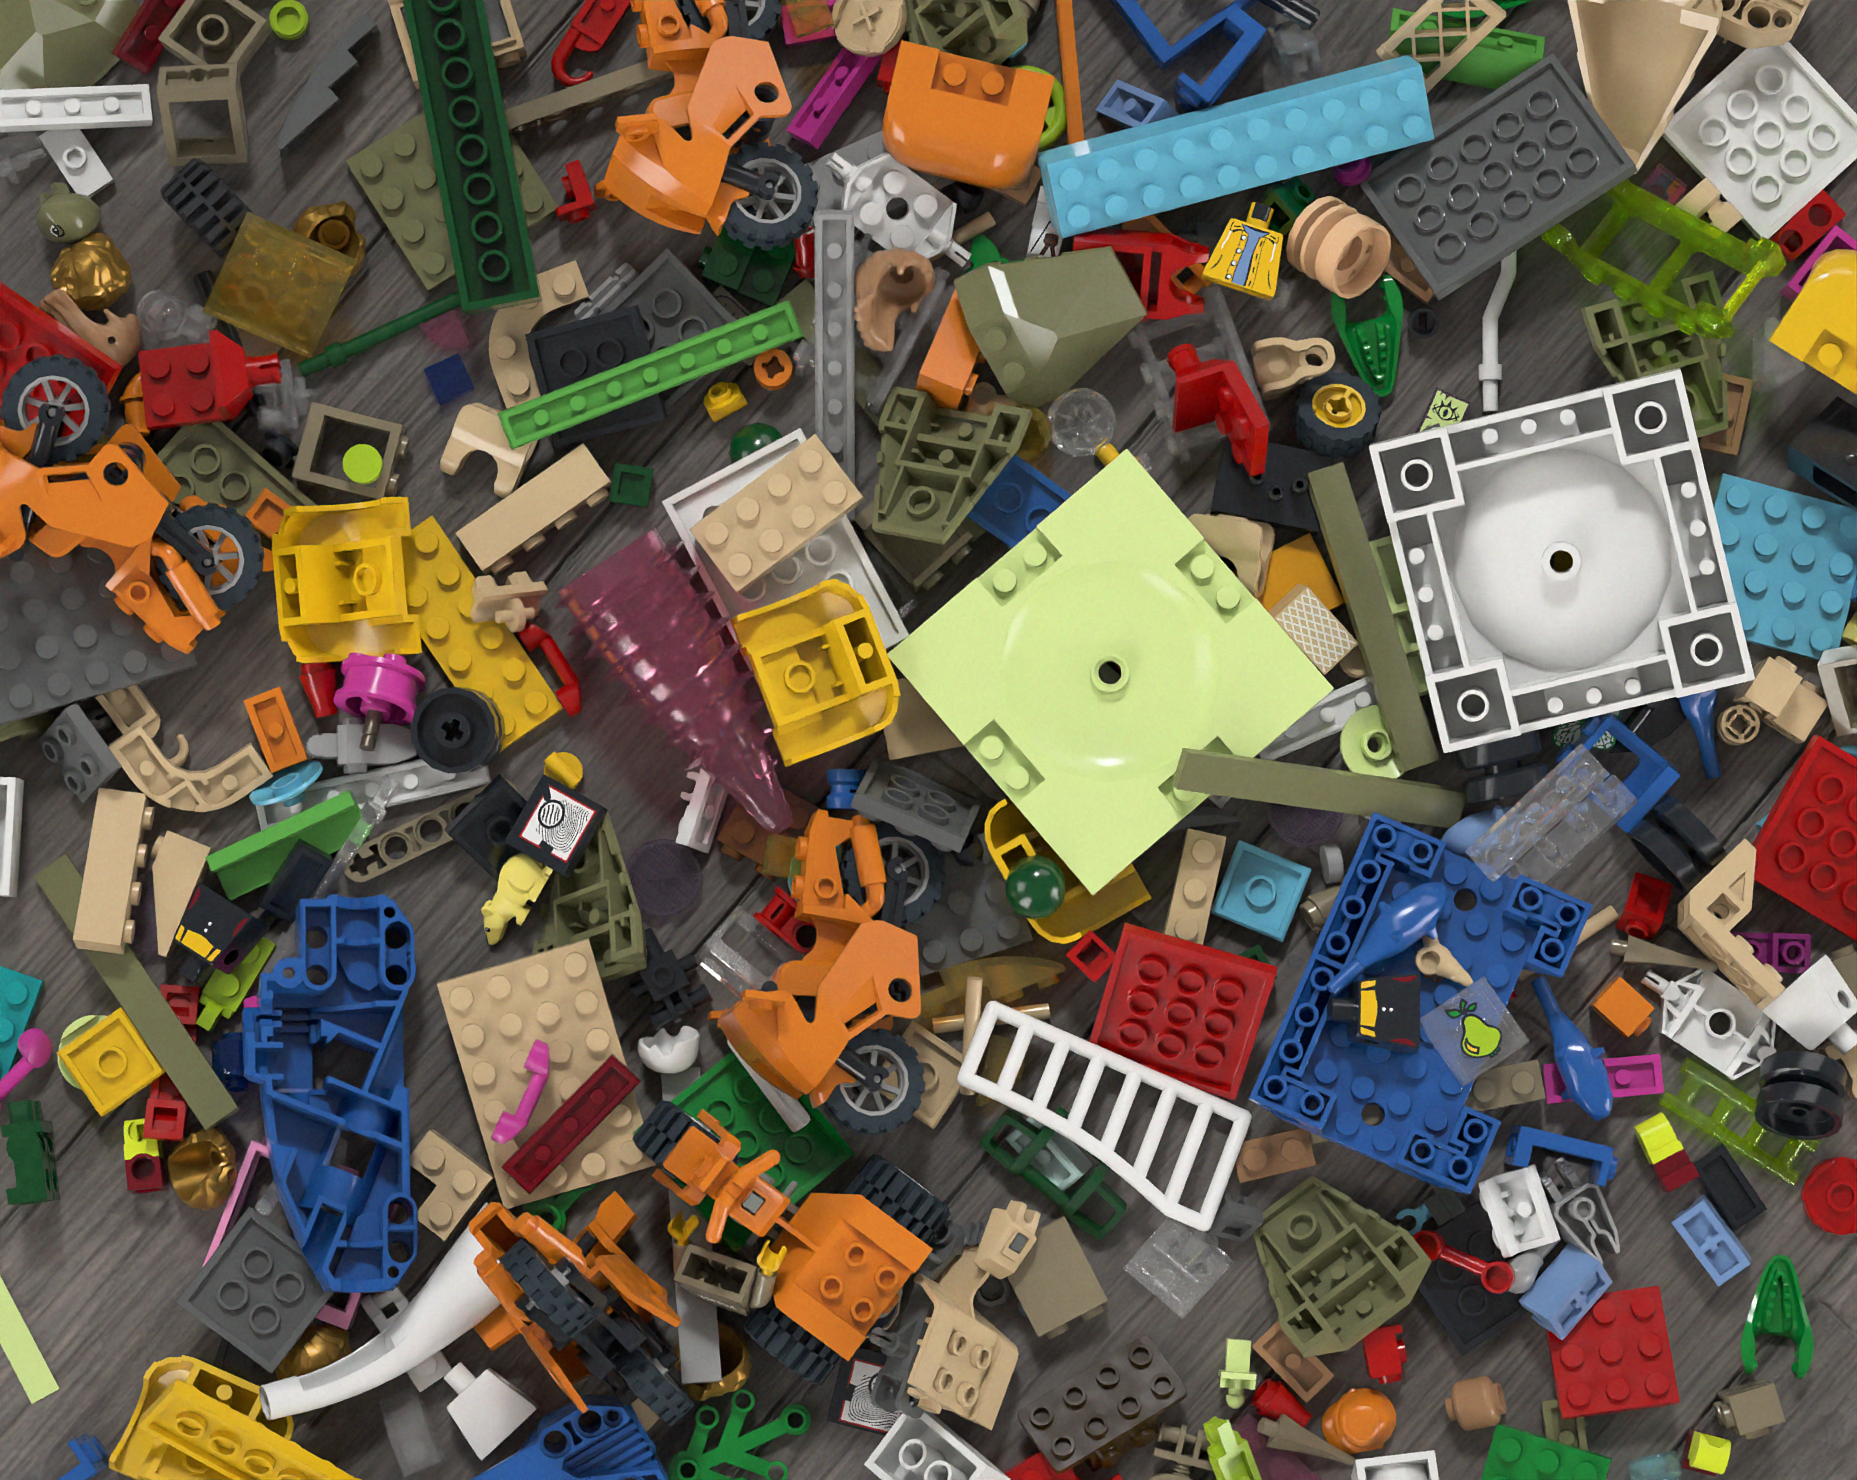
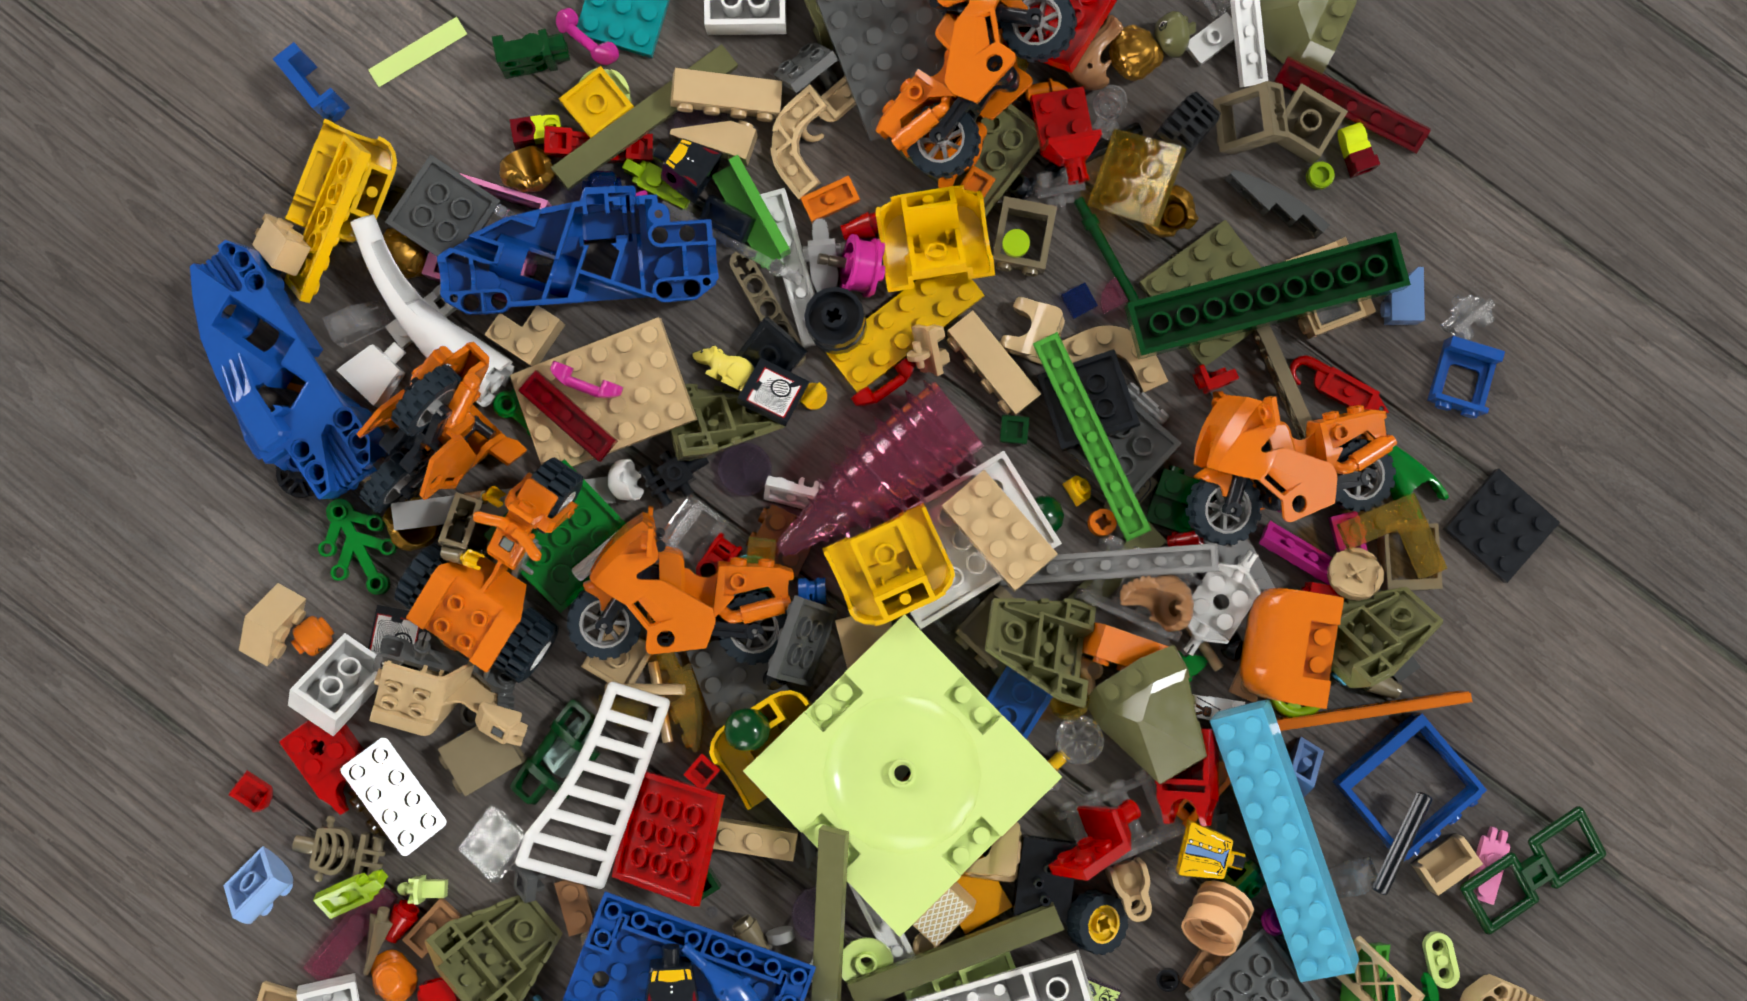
camera: 85 degrees right, 0 degrees up
(287, 785) = (791, 208): medium azure dish -> none
(1248, 38) = (1364, 840): blue window -> none
(1260, 891) = (758, 886): medium azure plate -> none
(1376, 341) = (1151, 946): green animal -> none

